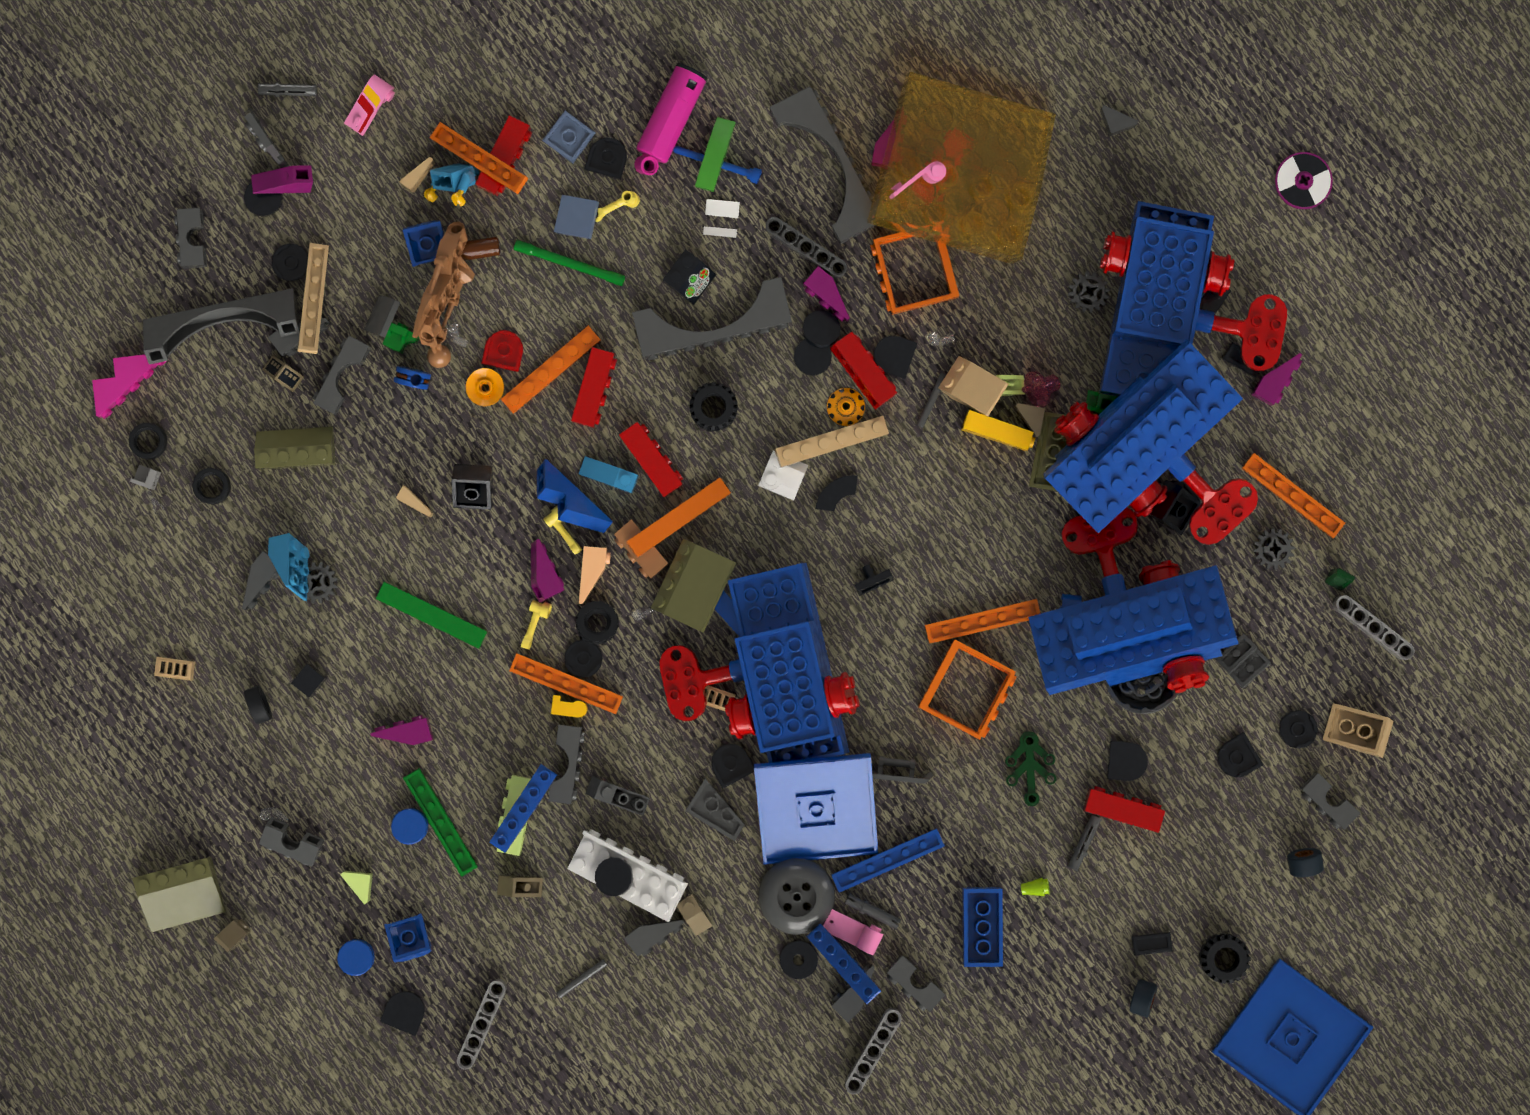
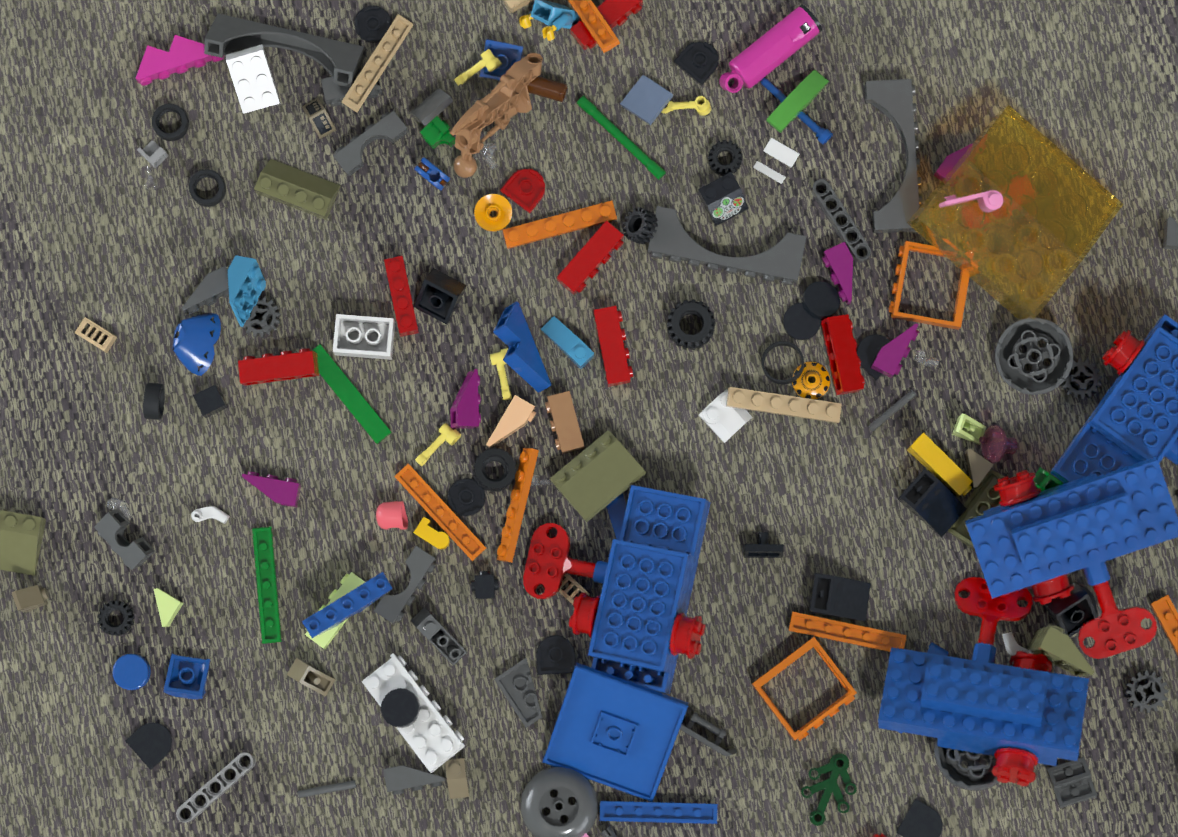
camera: 25 degrees right, 5 degrees down
(205, 366) = (252, 78): none -> white brick
(270, 631) = (196, 340): none -> blue piece
(314, 927) = (127, 621): none -> black tyre
(356, 621) = (278, 368): none -> red brick
(357, 781) = (209, 512): none -> white arm
(408, 497) = (378, 280): tan slope -> none
(409, 826) = (237, 575): blue head -> none
(414, 249) = (488, 60): none -> light yellow brick
(421, 556) = (364, 336): none -> white brick
(437, 503) = (401, 296): none -> red brick
(524, 707) = (392, 515): none -> coral helmet
(569, 136) = (673, 26): sand blue tile -> none
(632, 337) = (647, 227): none -> black tyre
(633, 644) = (517, 505): none -> orange plate
(637, 731) = (484, 585): none -> black brick
(673, 226) = (732, 149): none -> black tyre
(678, 517) = (612, 409): orange tile -> none
(801, 387) = (783, 343): none -> black tyre
(836, 491) = (765, 453): black tile -> none
(907, 352) = (890, 355): none -> magenta slope
(961, 592) = (839, 597): none -> black slope
(973, 386) = (936, 413): tan slope -> none
(1006, 468) = (932, 502): none -> black slope
(1019, 305) = (1011, 361): none -> dark grey brick
(1135, 564) = (1012, 646): none -> white arm
(1178, 550) = (1060, 651): none -> olive slope

